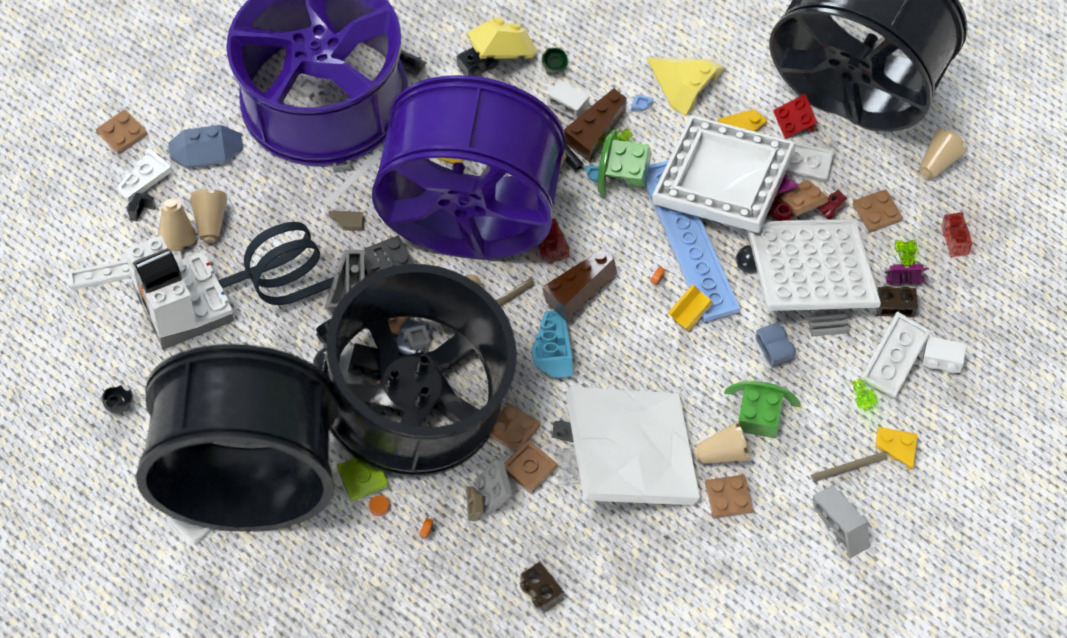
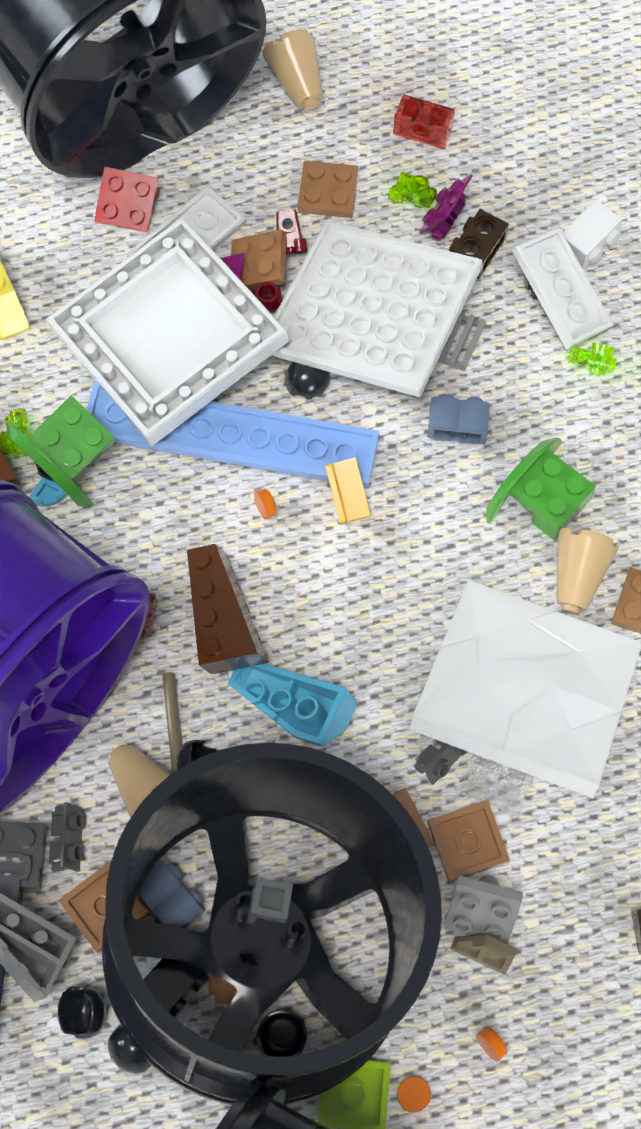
camera: 60 degrees left, 10 degrees up
(747, 120) = (90, 264): yellow wing -> none

